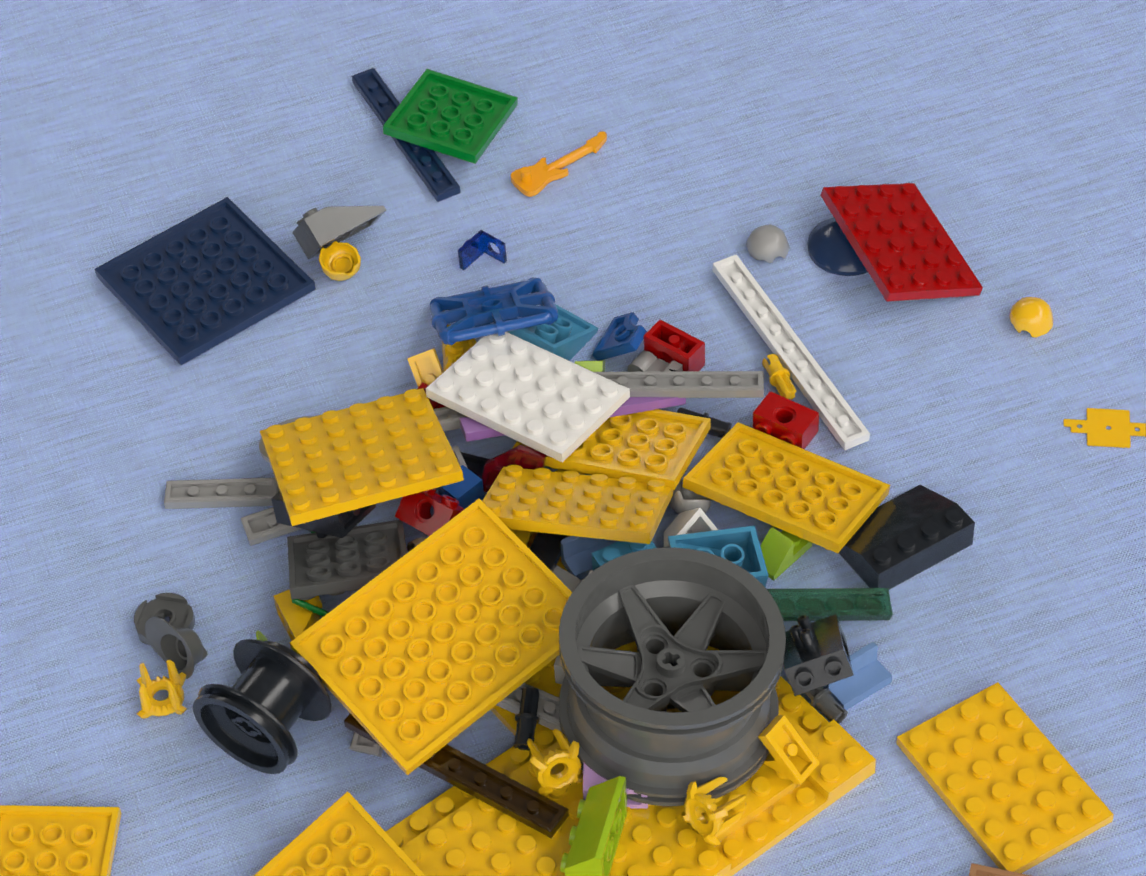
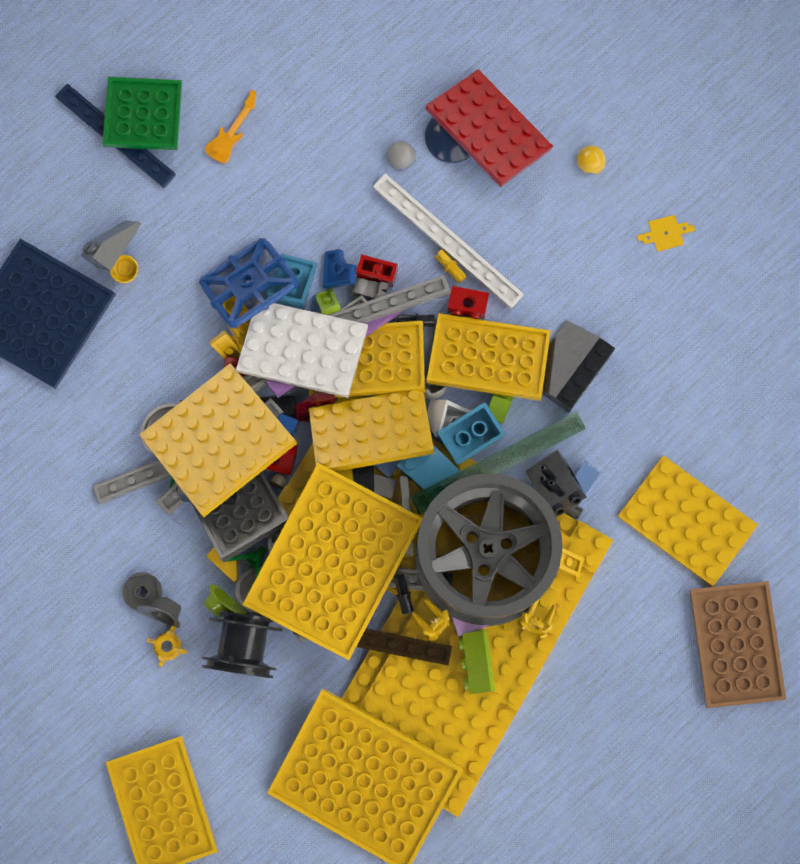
camera: 20 degrees left, 30 degrees up
(478, 245) = (208, 225): clear blue bracket -> none

